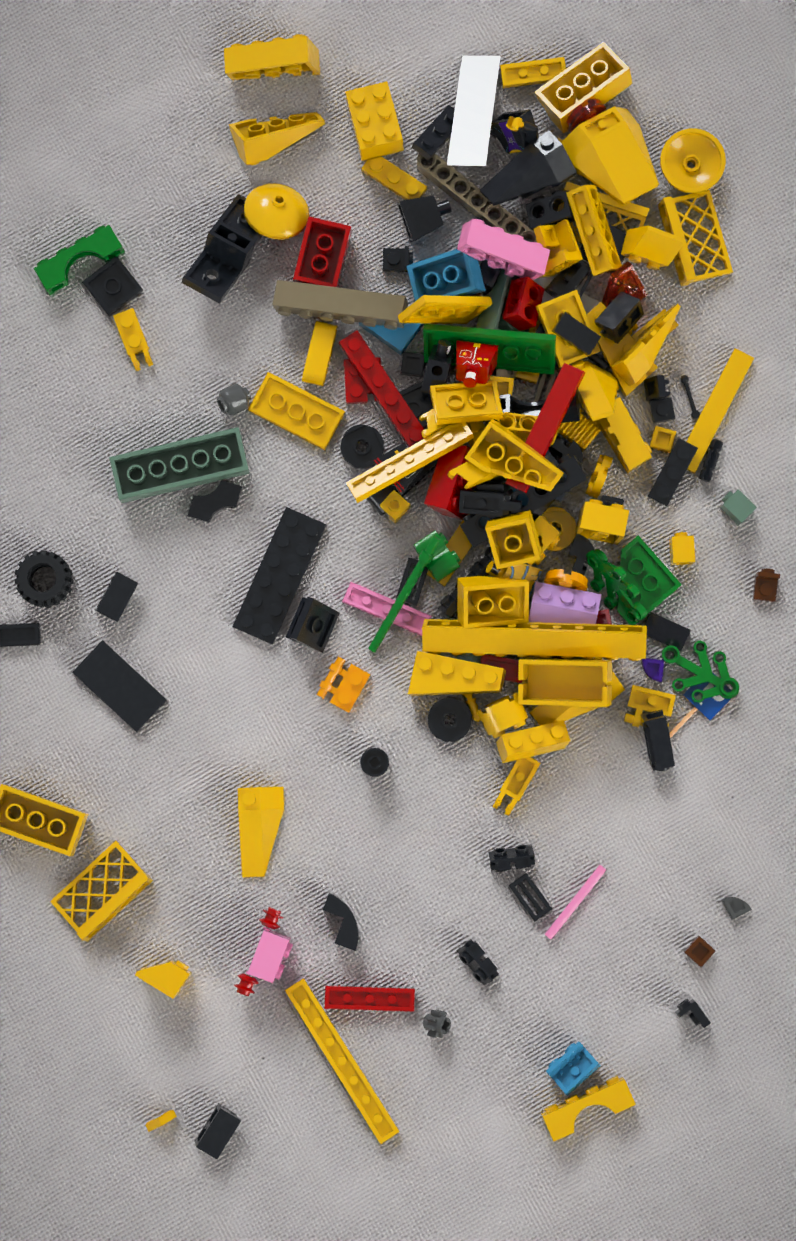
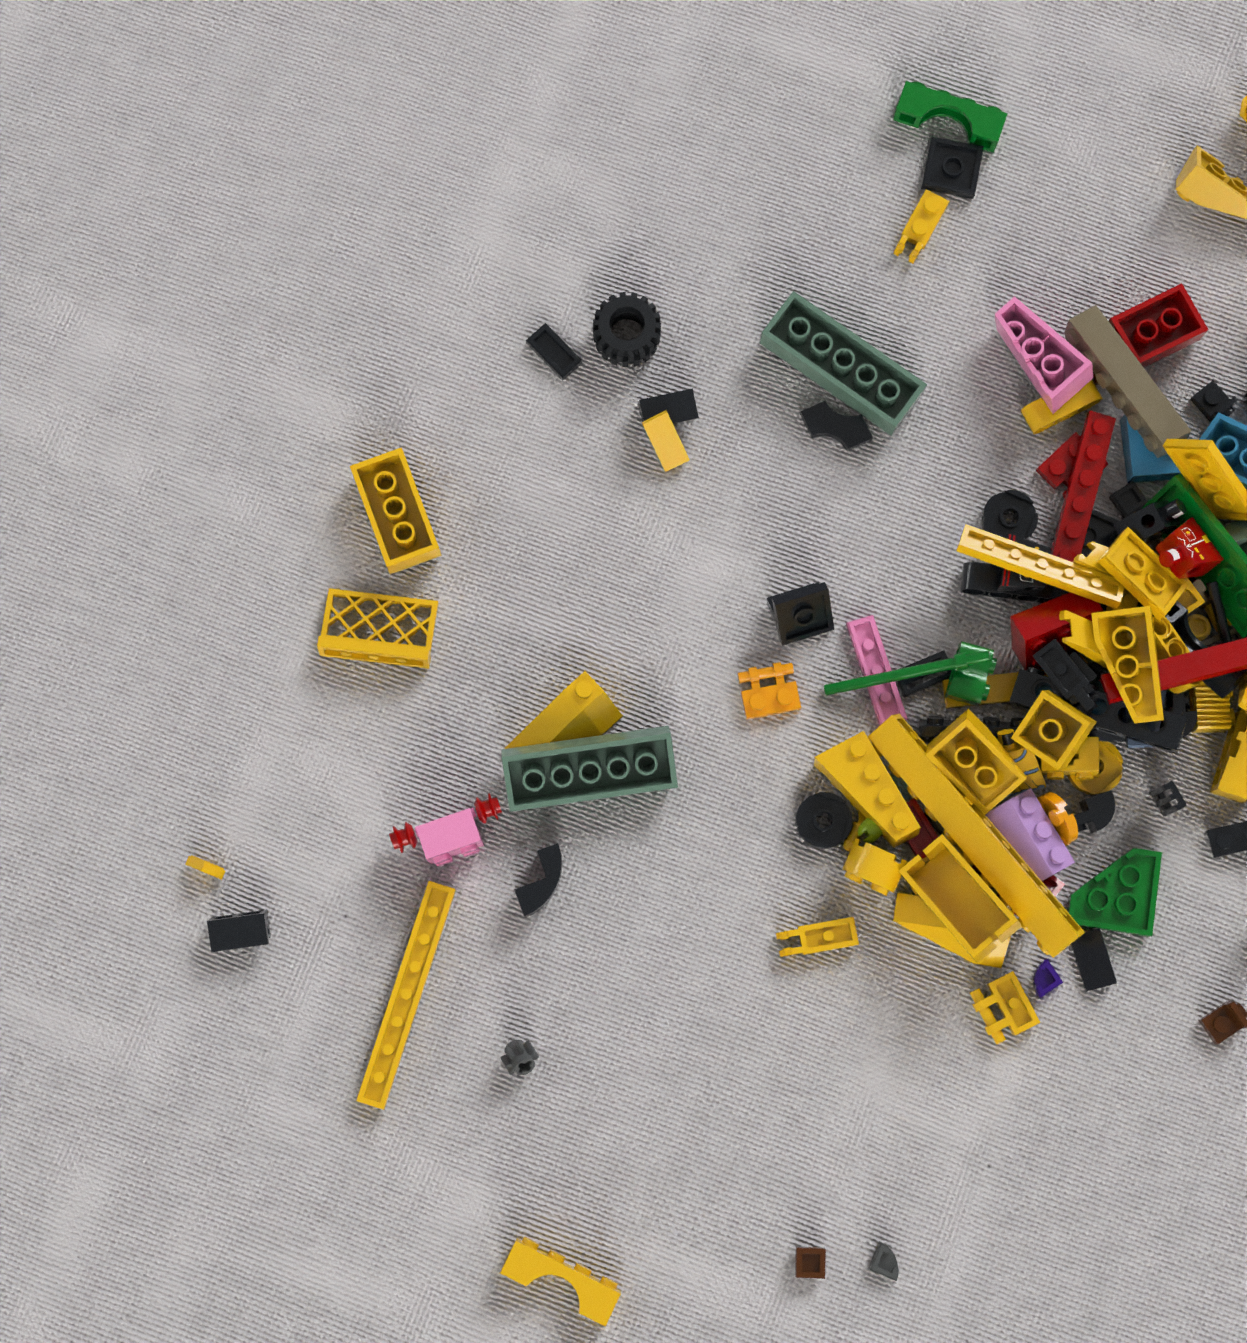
camera: 50 degrees right, 5 degrees down
(119, 686) = (586, 483): black tile -> none
(135, 615) = (665, 441): none -> yellow tile
(166, 977) = (347, 756): yellow slope -> none
(224, 254) = (1084, 238): black bracket -> none
(233, 399) = (947, 362): dark grey head -> none
(273, 218) = (1157, 252): yellow dish -> none
(279, 575) = (819, 544): black plate -> none
(286, 339) = (1043, 354): none -> bright pink wedge
(296, 411) = (987, 430): yellow tile -> none
(299, 836) = (589, 768): none -> sand green brick
(369, 998) = (489, 970): red plate -> none
(374, 762) = (721, 782): black wheel -> none
(395, 506) = (981, 595): yellow bracket -> none
(470, 955) = (613, 1034): black hinge -> none
(479, 697) = (870, 829): none -> lime hinge
(518, 881) = (714, 1070): black tile -> none
(521, 855) = (753, 1002): black hinge -> none
(524, 392) = (1199, 626): none -> yellow plate
(528, 375) = (1219, 612): none -> black bar
(533, 741) = (874, 918): yellow brick -> none
(572, 1067) = (588, 1230): dark azure bracket -> none
(574, 903) = (753, 1095): bright pink bar -> none
(598, 476) = (1192, 761): yellow plate -> none
(602, 521) = (1146, 803): yellow brick -> none
(614, 583) = (1103, 833): green plant -> none
(658, 740) = (981, 1042): black window -> none
(682, 549) = (1186, 907): yellow brick -> none
(697, 1014) = (744, 1314): black bracket -> none
(703, 673) = (1084, 1032): green plant -> none
(708, 707) = (1066, 1055): blue piece -> none

